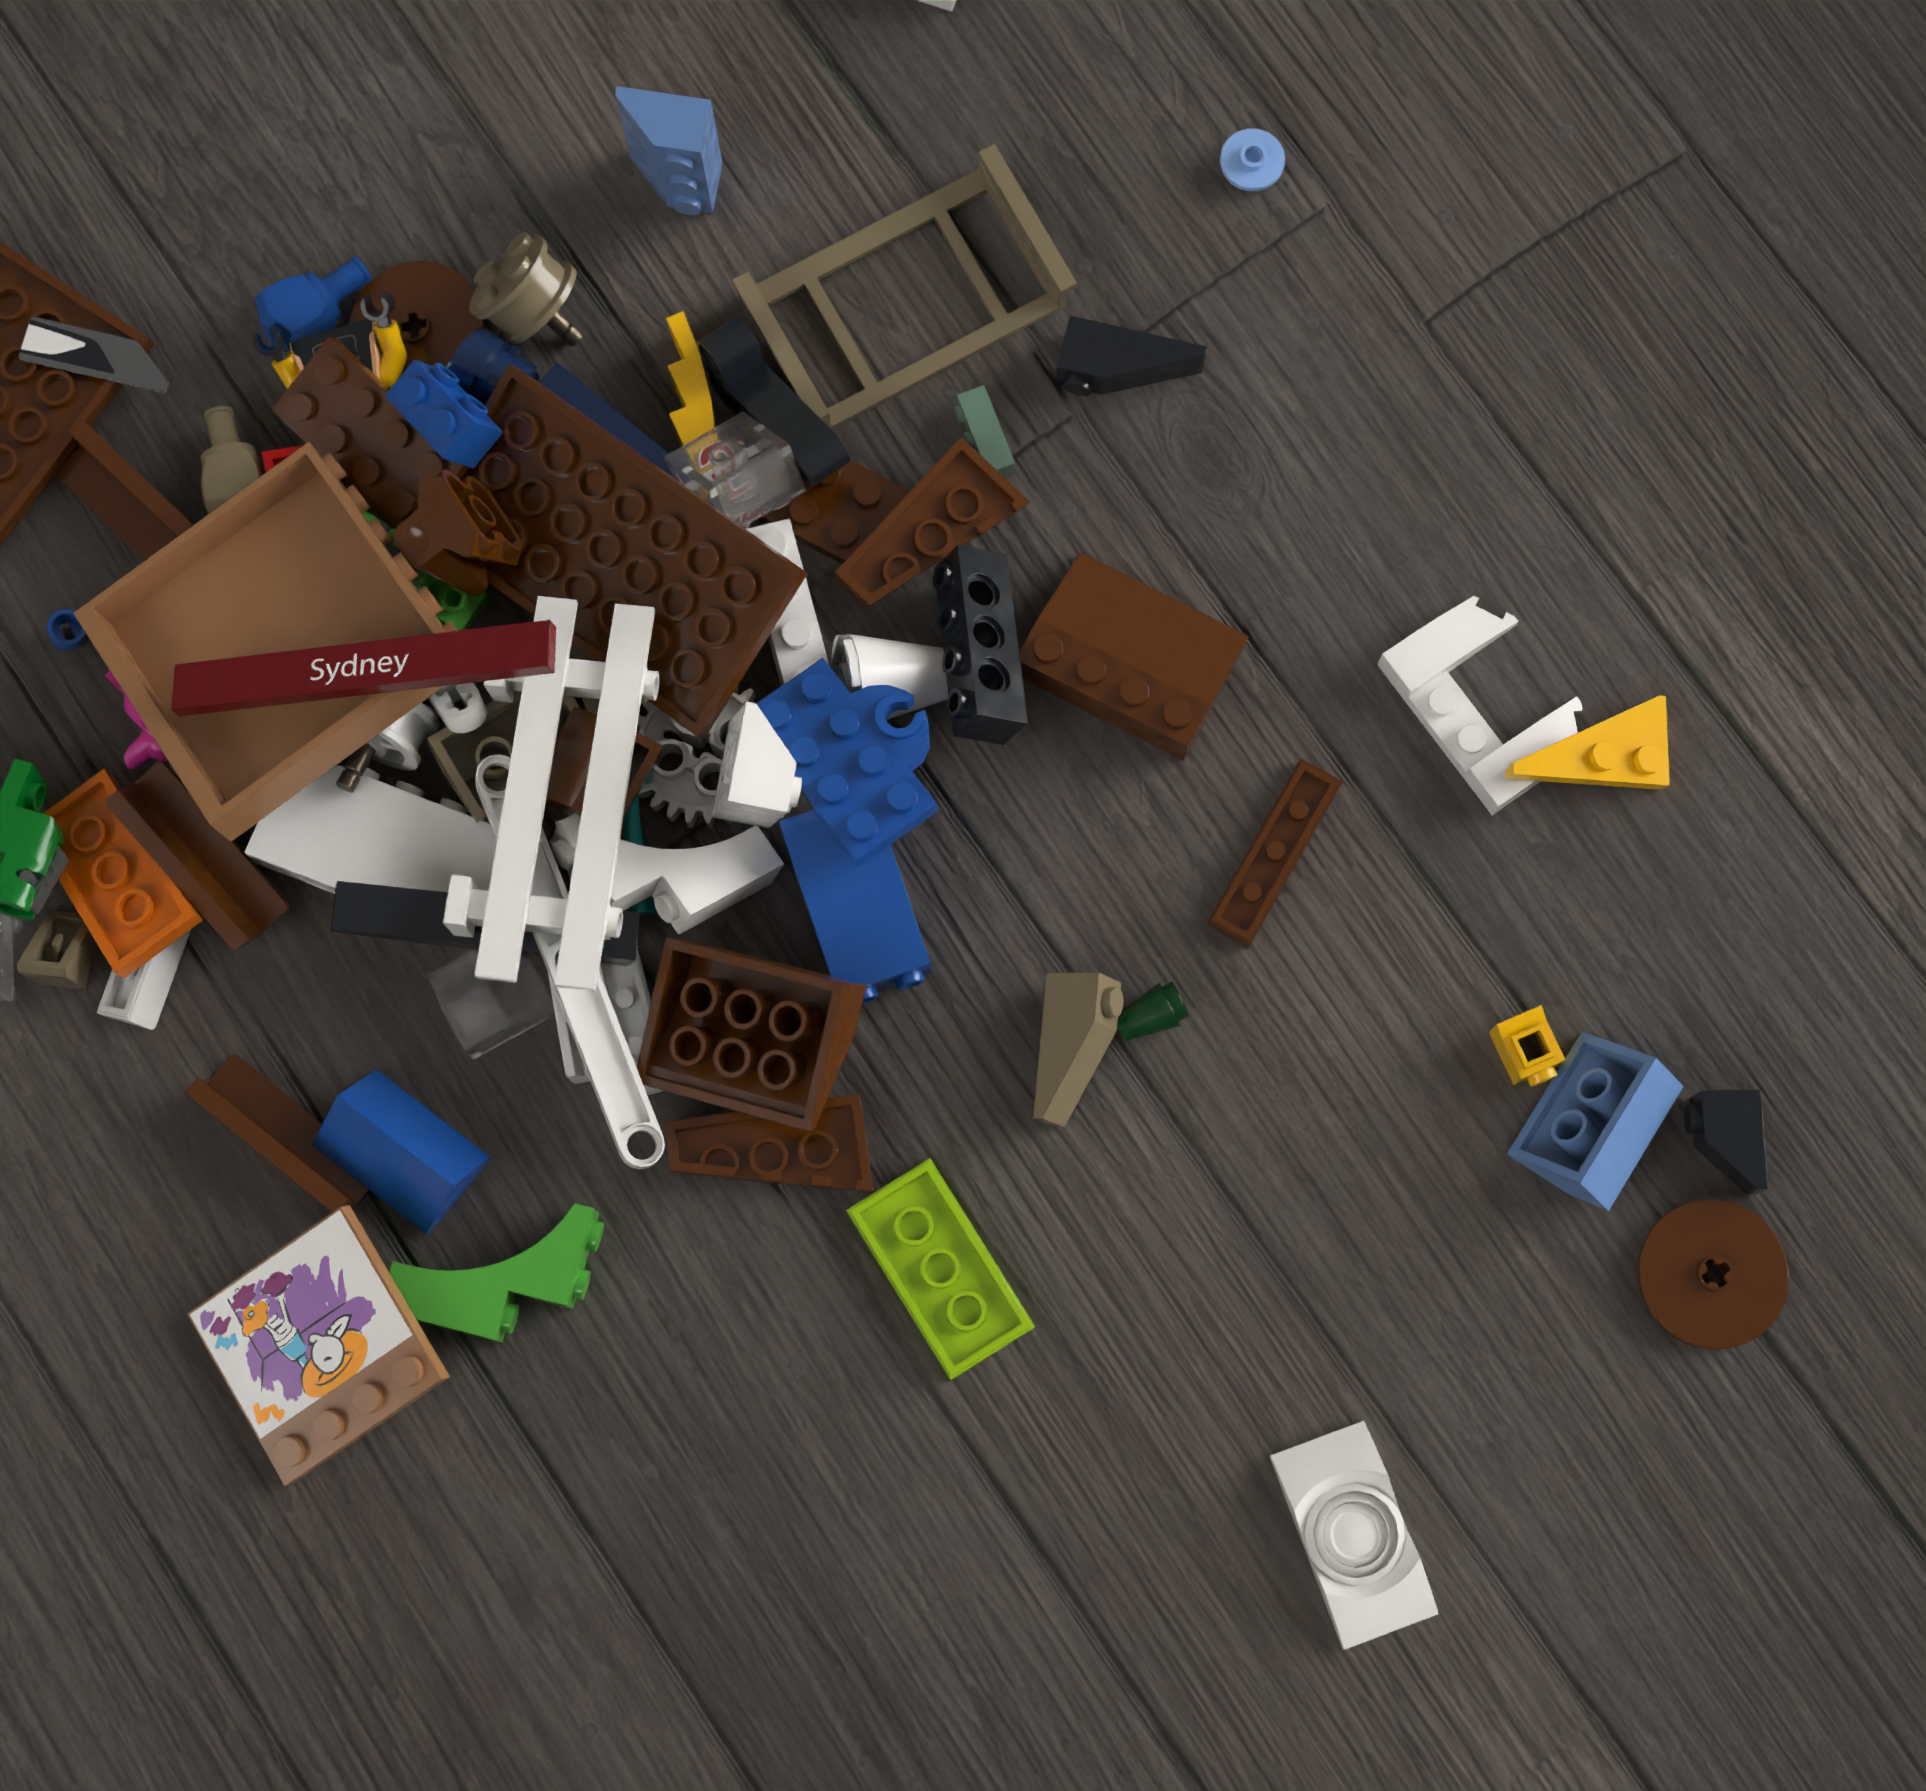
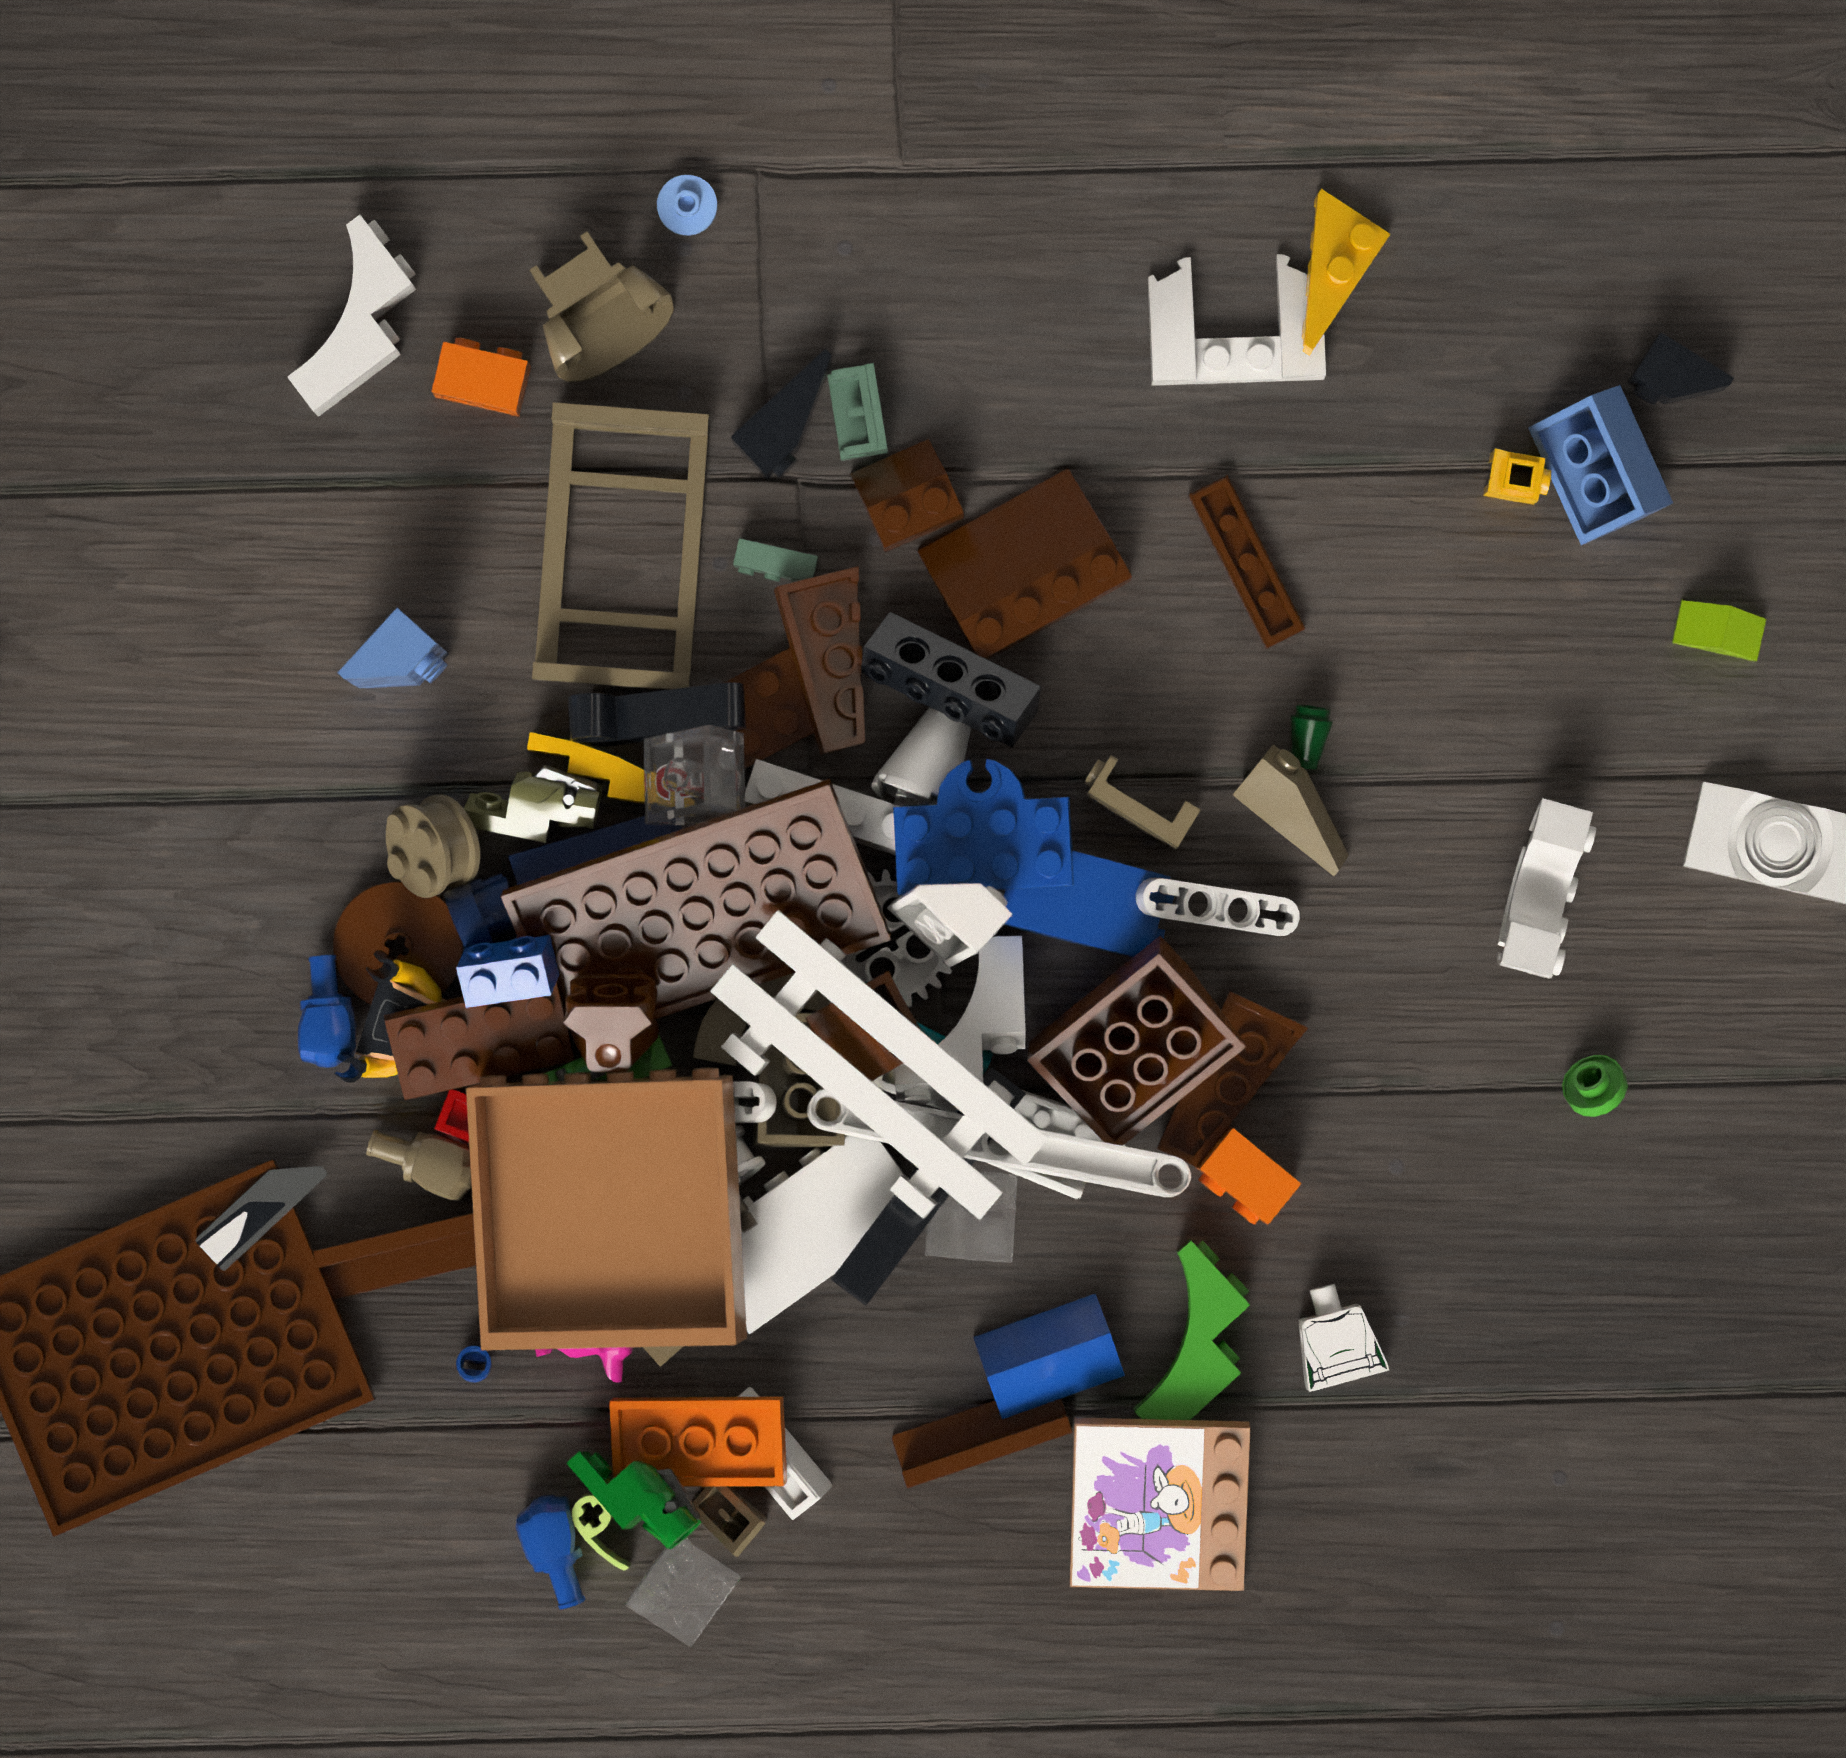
camera: 55 degrees left, 10 degrees up
(197, 857) = (721, 1374): reddish brown panel -> none
(365, 668) = (693, 1157): dark red tile -> none
(585, 1418) = (1337, 1342): none -> white torso
(621, 361) = (536, 803): none -> olive plate
(688, 1220) = (1247, 1176): none -> orange brick
(926, 1030) = (1217, 908): none -> white beam
(940, 1269) = (1394, 1015): lime tile -> none
(976, 82) = (481, 377): none -> orange brick
(979, 939) = (1136, 814): none -> dark tan panel
(997, 1506) = (1594, 1085): none -> bright green plate
(1106, 147) = (599, 313): none -> dark tan piece
(1122, 511) = (907, 495): none -> reddish brown slope
(1155, 1327) = (1541, 886): none -> white brick
(1172, 420) = (857, 412): none -> sand green hinge
(1520, 1339) = (1719, 629): none -> lime slope
(1752, 1280) = (1790, 435): reddish brown piece -> none

